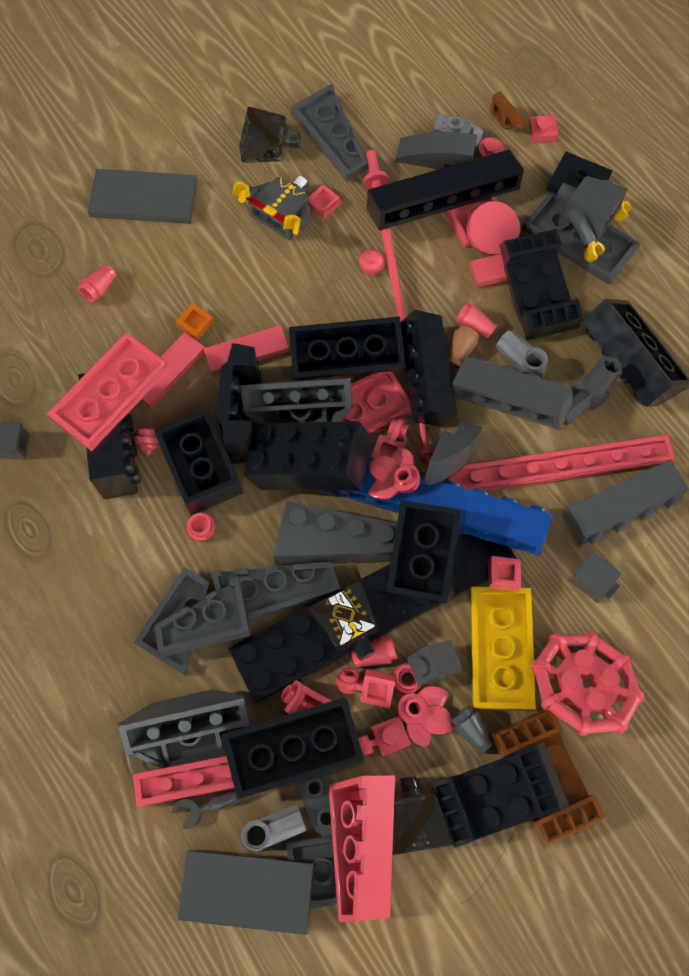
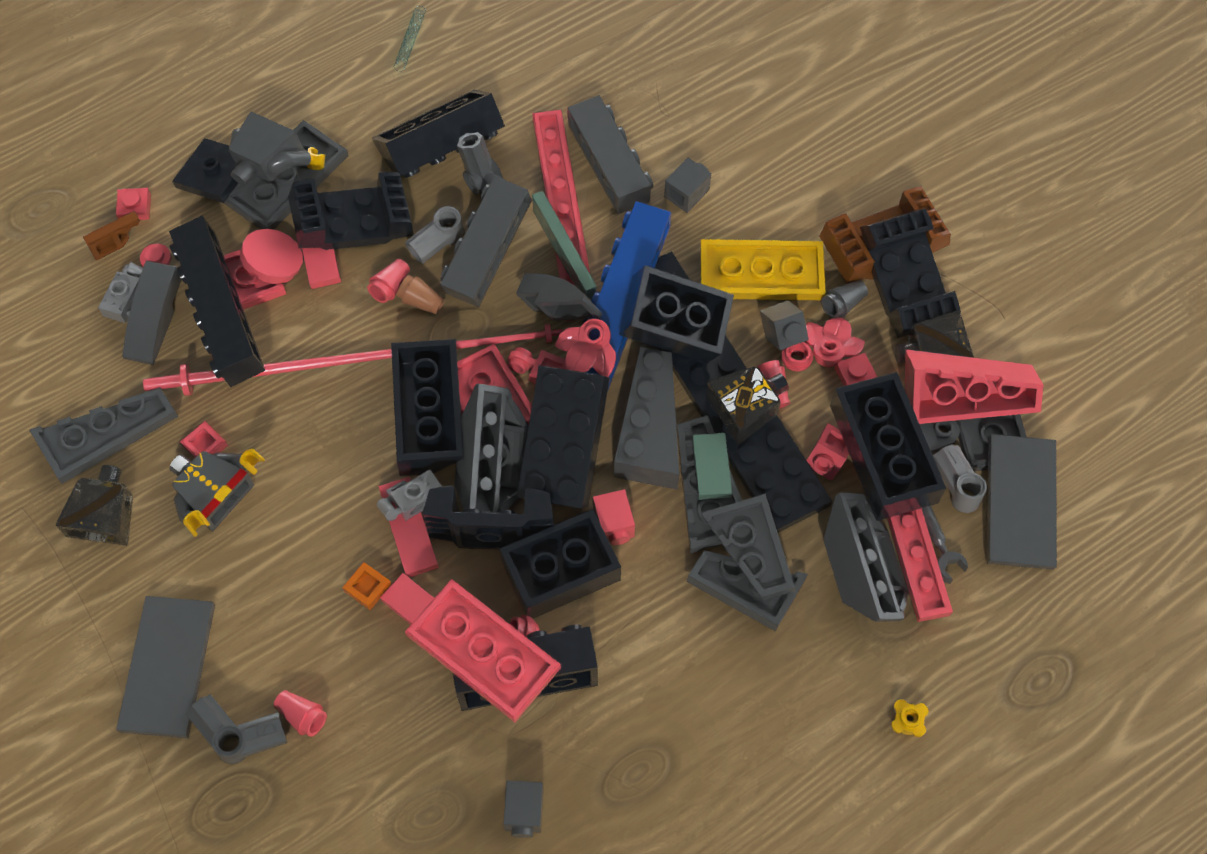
camera: 95 degrees left, 5 degrees down
(50, 766) = (902, 725): none -> yellow plate
(87, 231) = (218, 727): none -> dark grey piece
(200, 526) = (635, 567): coral plate -> none
(243, 507) = (615, 516): none -> coral brick
(266, 348) = (408, 497): none -> light grey piece
(285, 589) = (711, 466): none -> sand green tile
(372, 262) = (299, 387): coral plate -> none
(376, 687) = (811, 384): coral plate -> none
(427, 368) = (466, 321): black brick -> none
(504, 573) = (690, 258): coral plate -> none
(511, 458) = (563, 245): none -> sand green tile
(594, 698) = (793, 182): coral plate -> none

